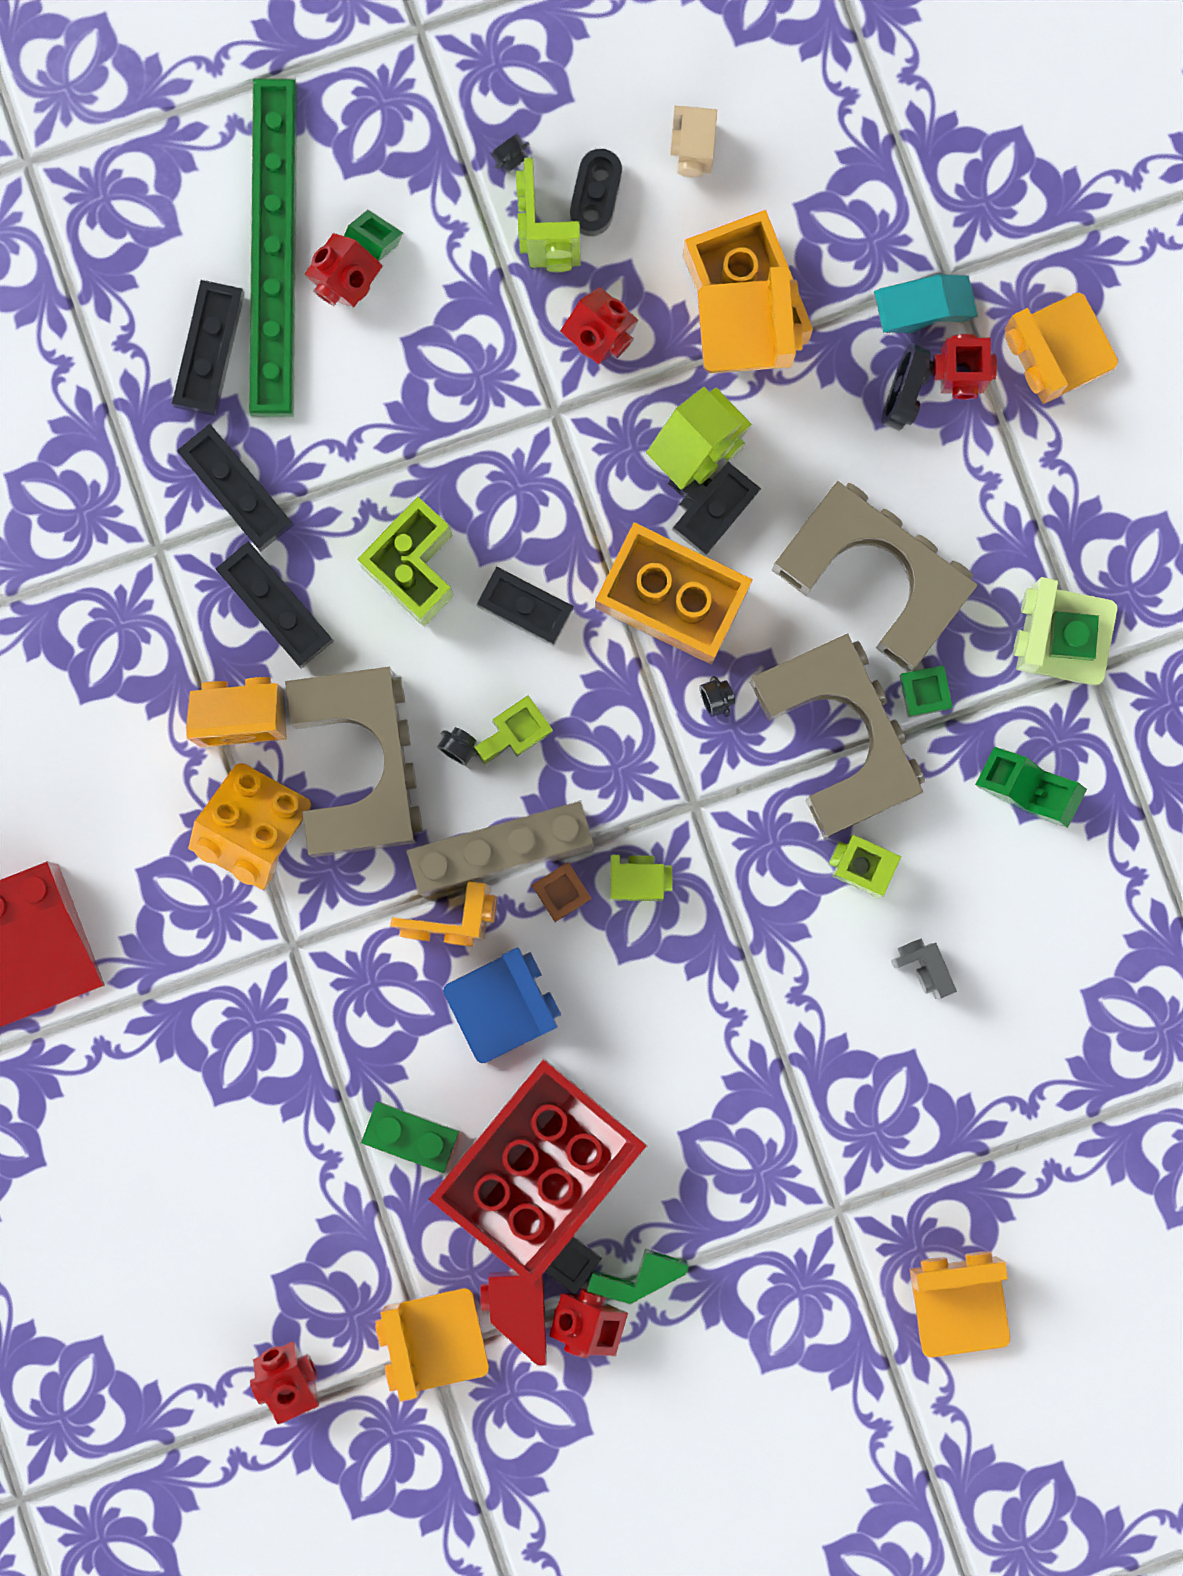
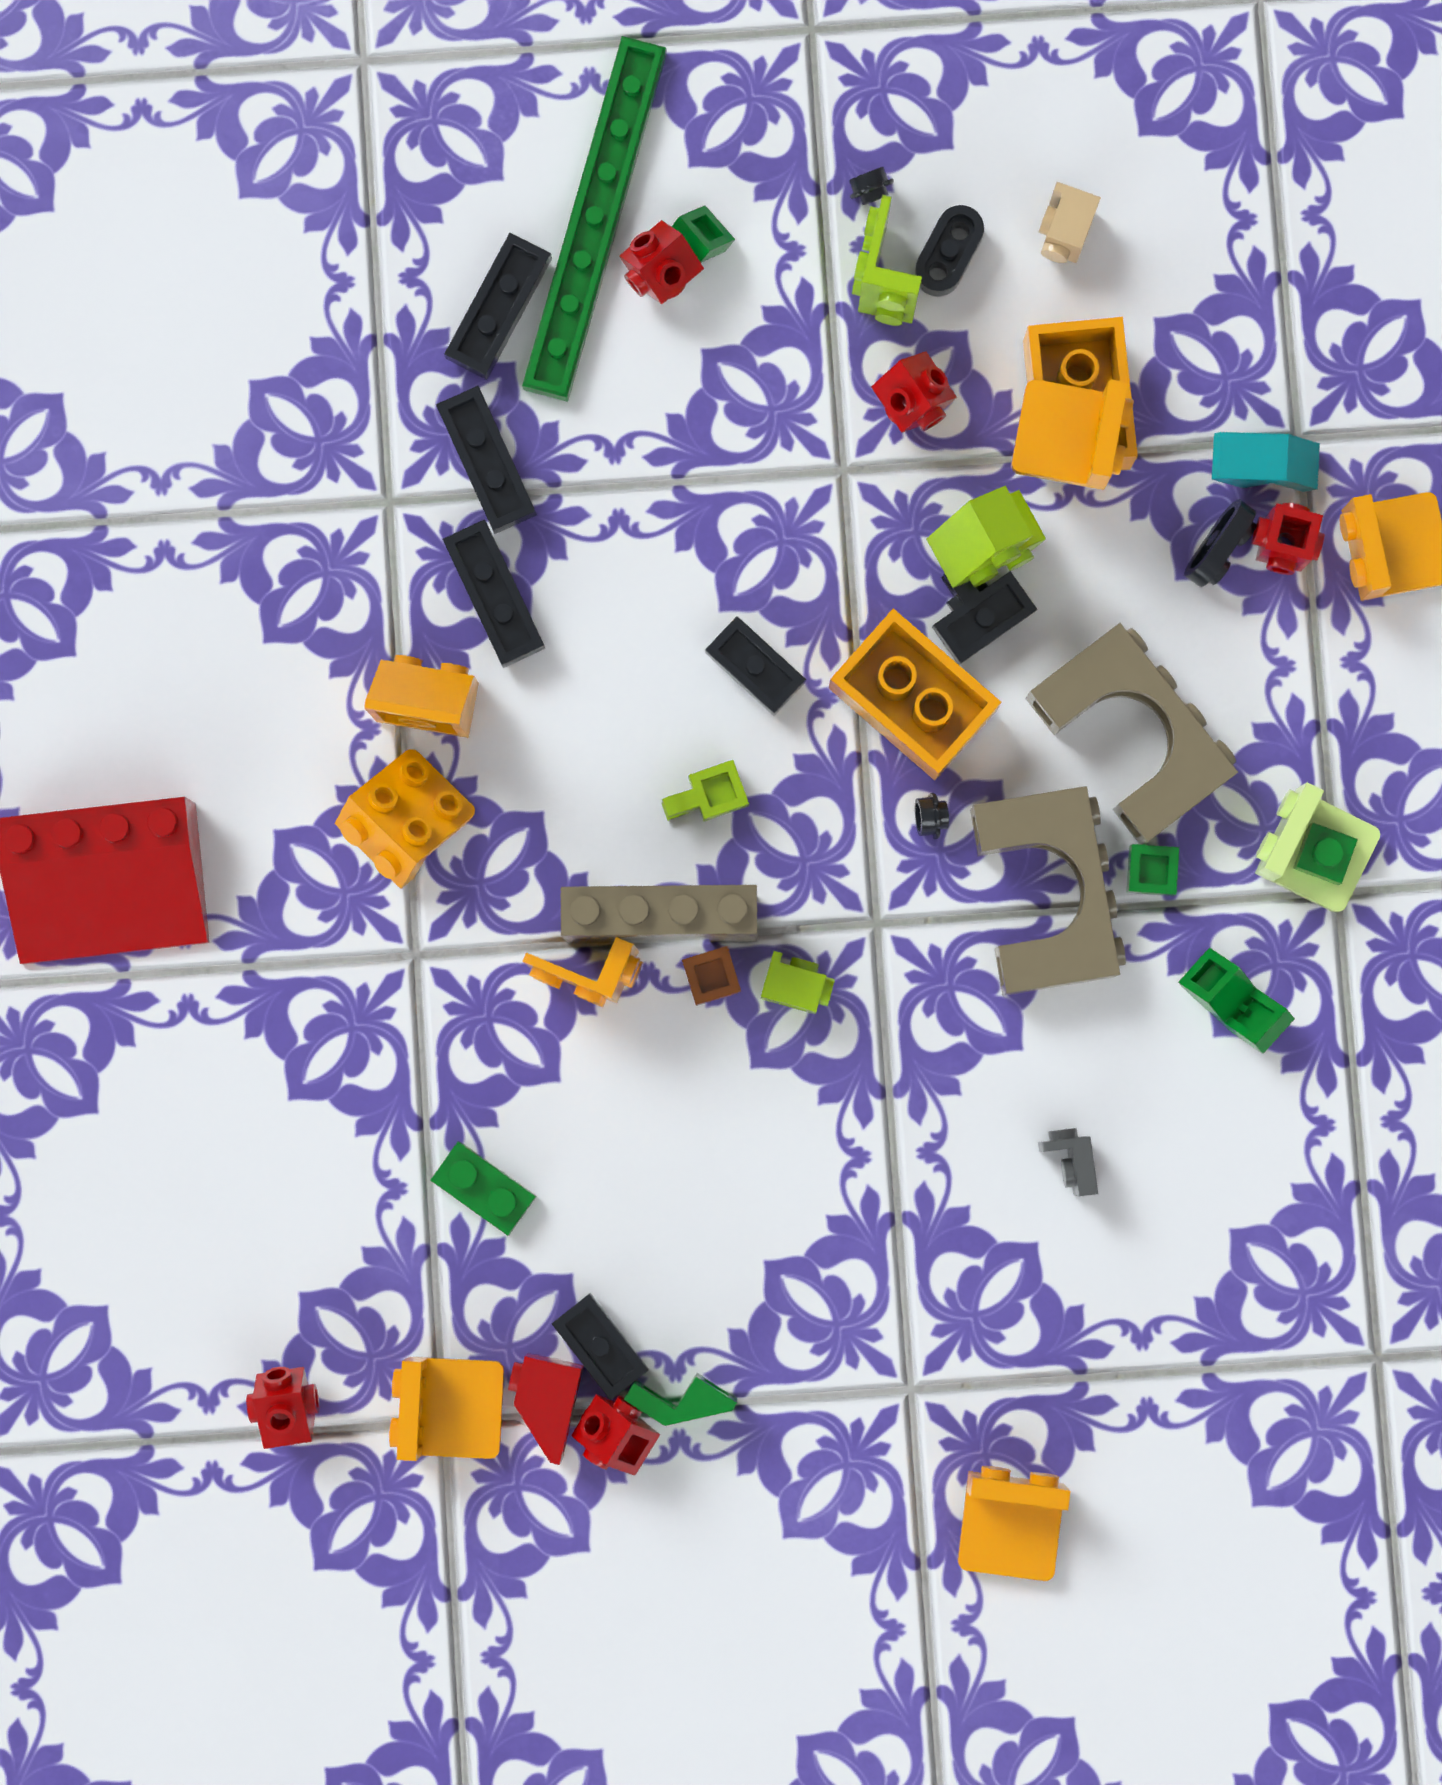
camera: 20 degrees right, 0 degrees up
(386, 813) = (549, 844): dark tan arch -> none
(400, 559) = (636, 586): lime brick -> none
(458, 745) = (645, 793): black plate -> none
(501, 1005) = (616, 1077): blue bracket -> none
(537, 1171) = (606, 1260): red slope -> none
(880, 865) = (1055, 1035): lime brick -> none

